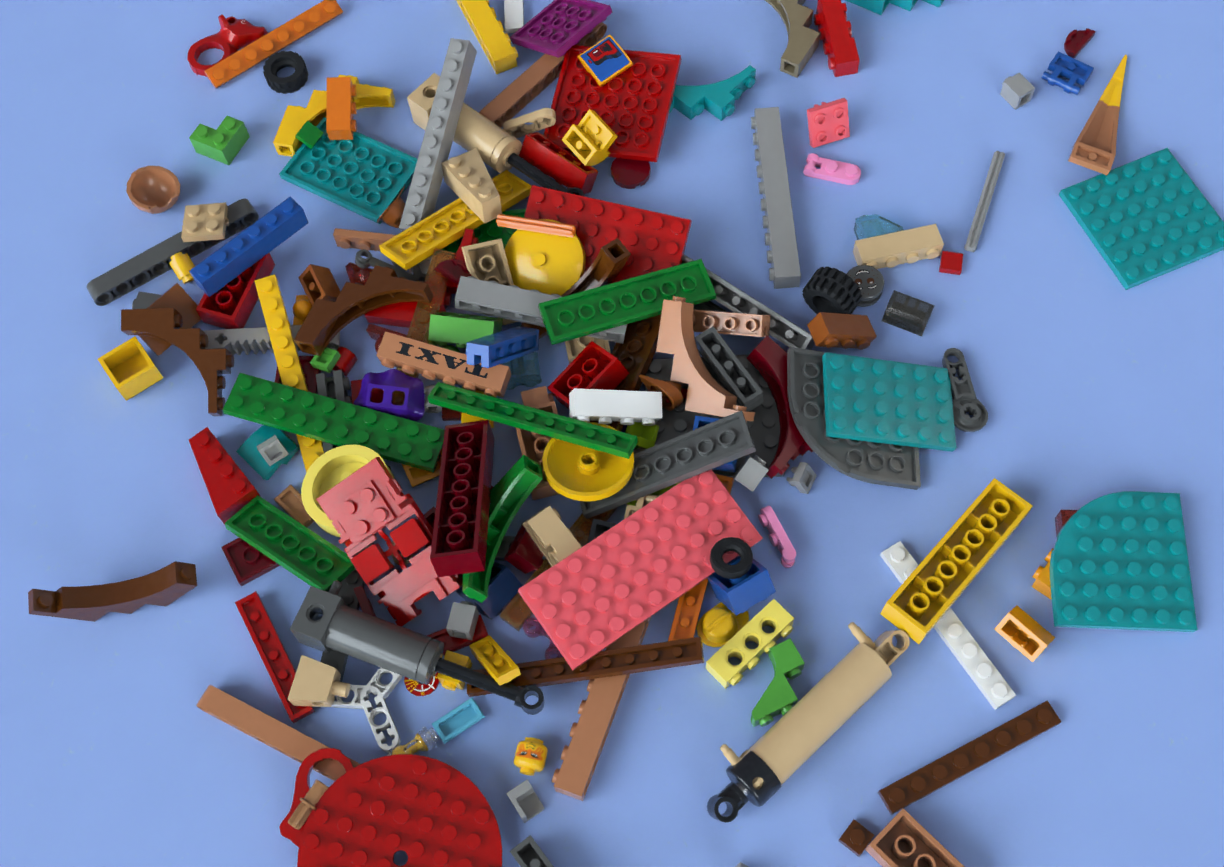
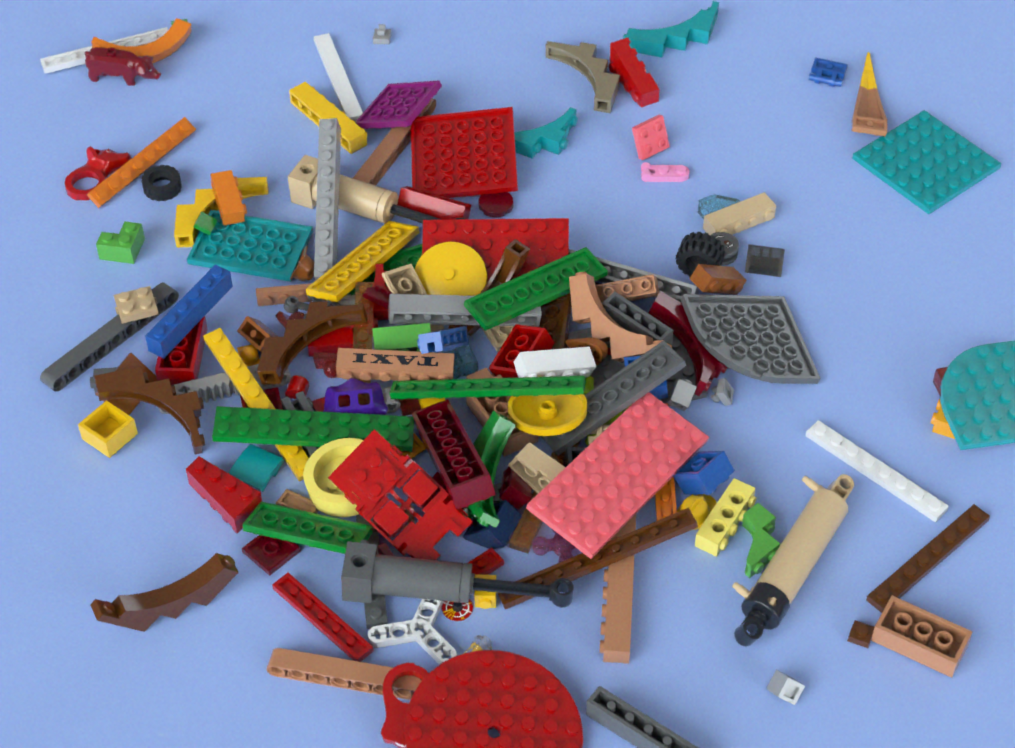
camera: 20 degrees left, 15 degrees down
(153, 189) = (76, 289): nougat cylinder -> none
(181, 266) = (126, 344): yellow brick -> none
(272, 450) = (265, 461): light grey tile -> none
(306, 805) = (401, 706): medium nougat axle -> none
(316, 684) = (372, 623): tan torso -> none
(326, 361) = (286, 387): bright green tile -> none
(458, 720) = (502, 627): medium azure tile -> none
(462, 620) = (480, 551): light grey brick -> none
(472, 184) = (369, 231): tan wedge -> none
(495, 660) = (520, 571): yellow plate -> none
(525, 801) = (579, 672): light grey panel -> none
(530, 756) = (574, 638): yellow head -> none
(536, 225) = (439, 247): axle -> none
(541, 118) = (410, 178): tan beam -> none
(590, 139) = (457, 181): yellow brick -> none
(605, 60) = (449, 121): slope -> none
(726, 570) = (691, 458): black tyre -> none
(776, 198) = (627, 200): light grey brick -> none
(778, 536) = (720, 437): bright pink plate -> none
(888, 402) = (773, 322): teal plate -> none
(951, 262) = (785, 220): red tile -> none
(955, 560) = (868, 419): yellow brick -> none
(963, 395) = (835, 319): dark grey beam -> none
(984, 202) = (796, 173): light grey axle -> none
(1017, 90) = (793, 90): light grey brick -> none
(1024, 633) = (939, 460): light orange brick -> none
(1077, 41) = (827, 48): dark red tile -> none

